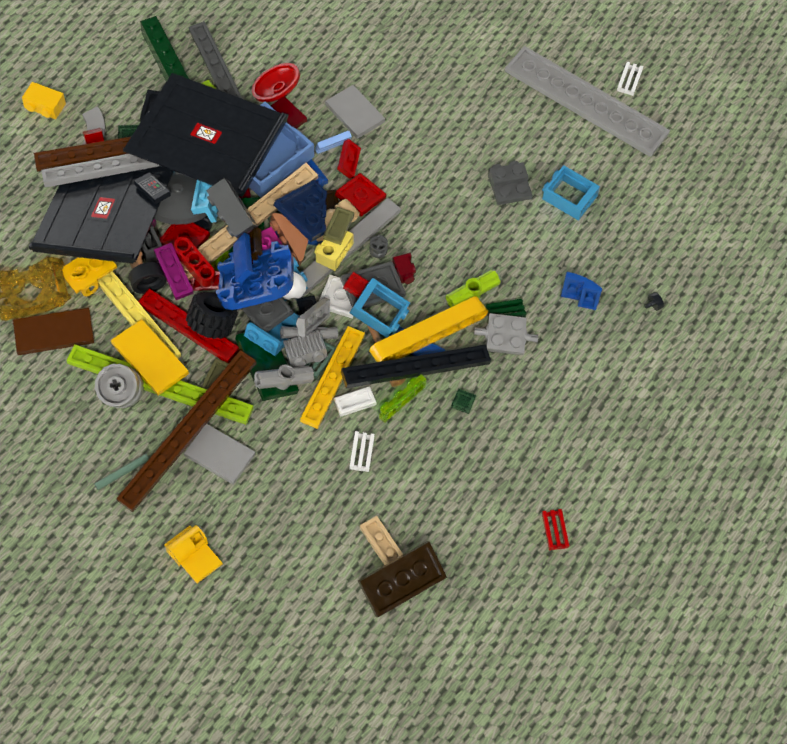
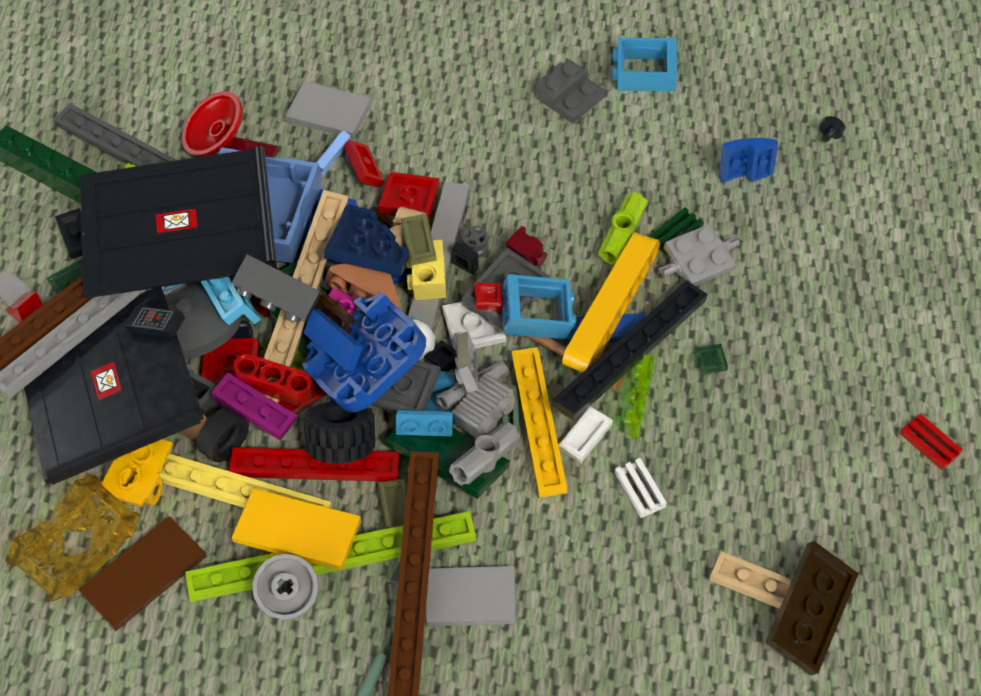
camera: 25 degrees left, 5 degrees down
(364, 253) = (465, 258): none -> black tile

